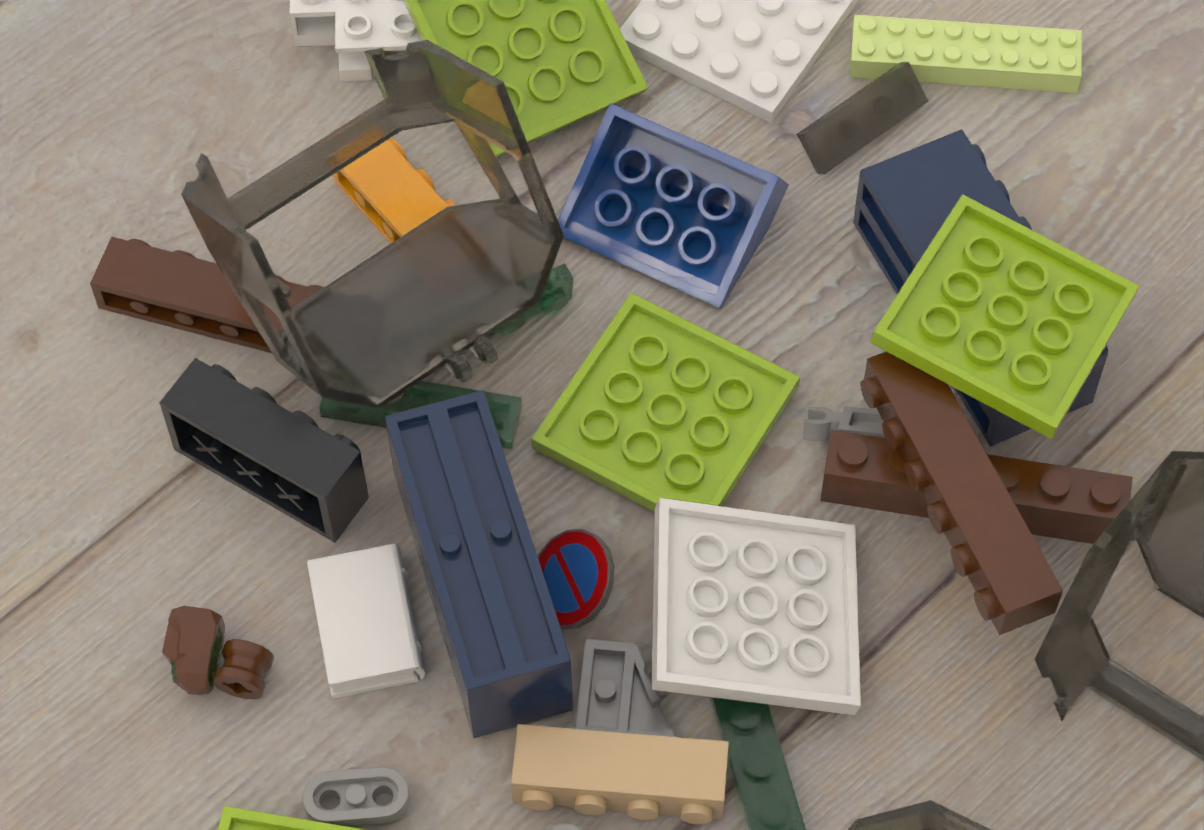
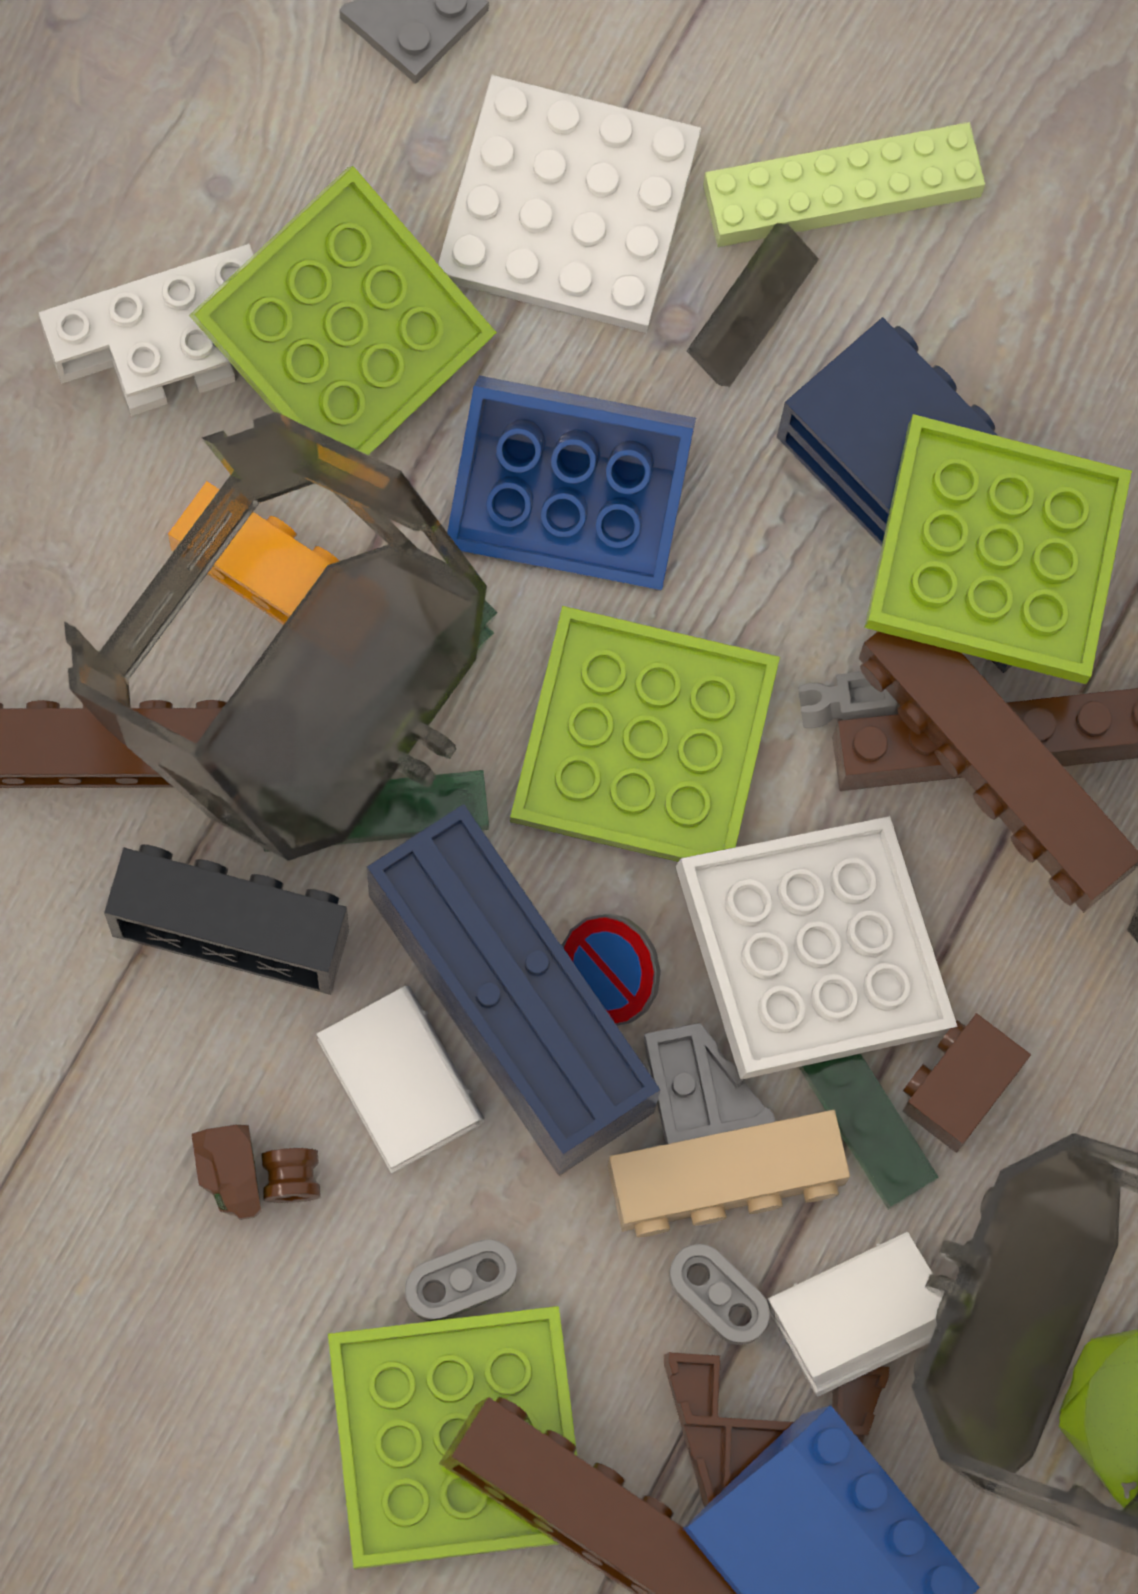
camera: 25 degrees left, 15 degrees up
(854, 757) = (964, 1082): none -> reddish brown brick

